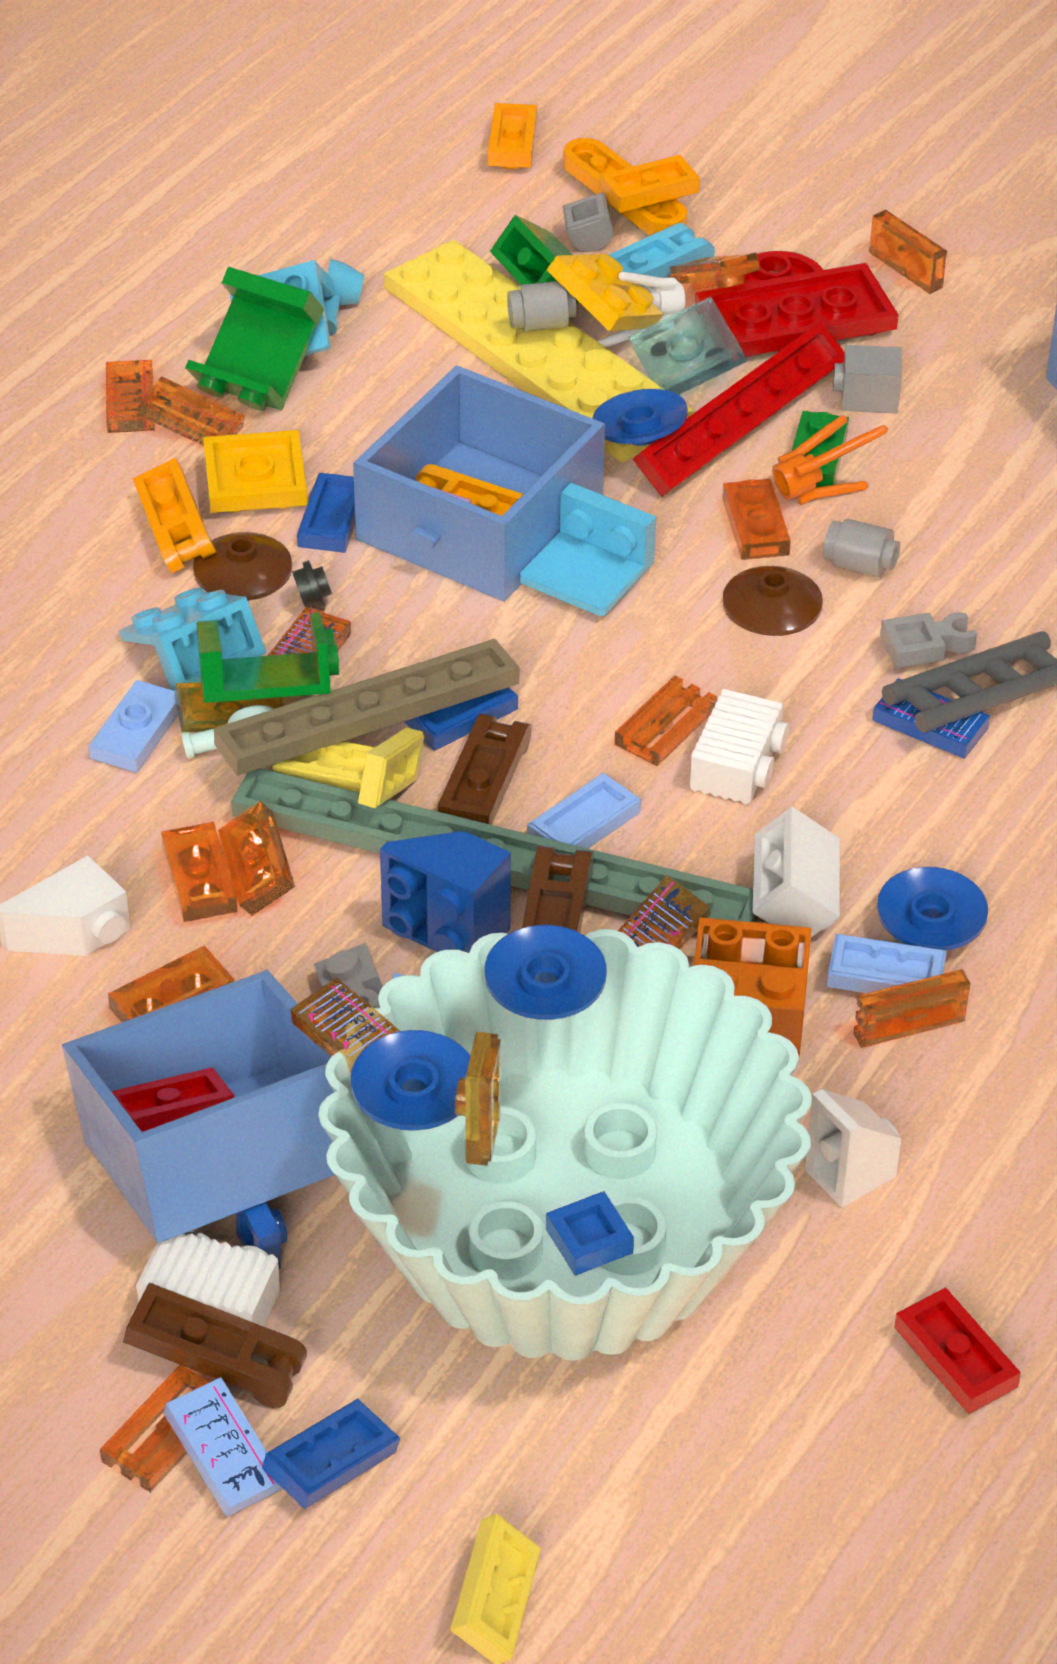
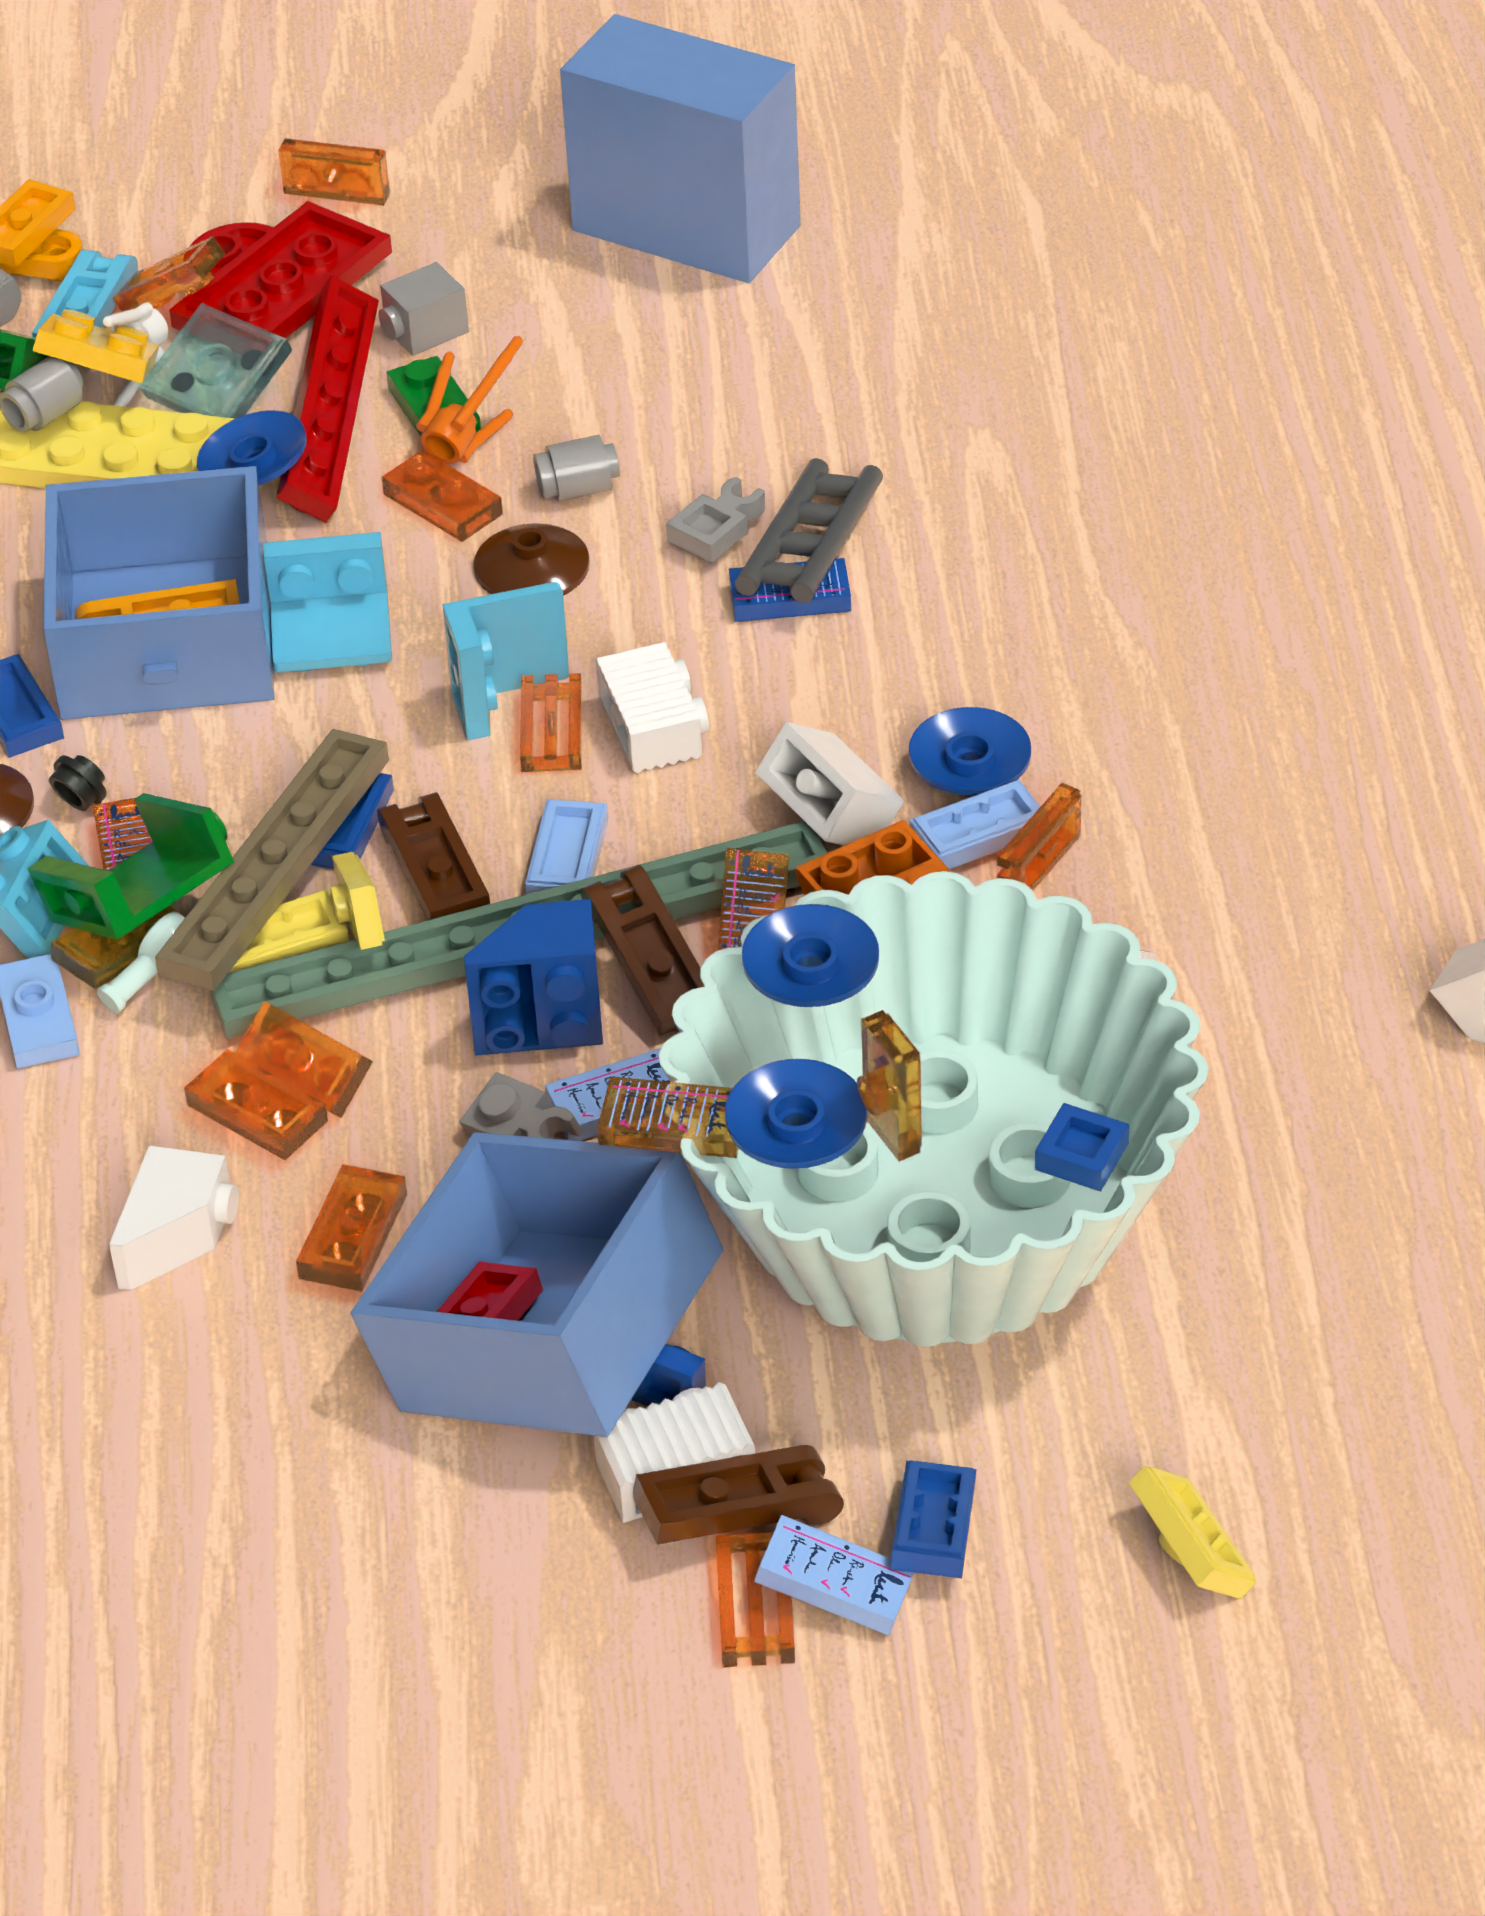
camera: 35 degrees left, 0 degrees up
(660, 640) = (499, 641): none -> medium azure bracket
(957, 1350) = (1360, 1102): red plate -> none

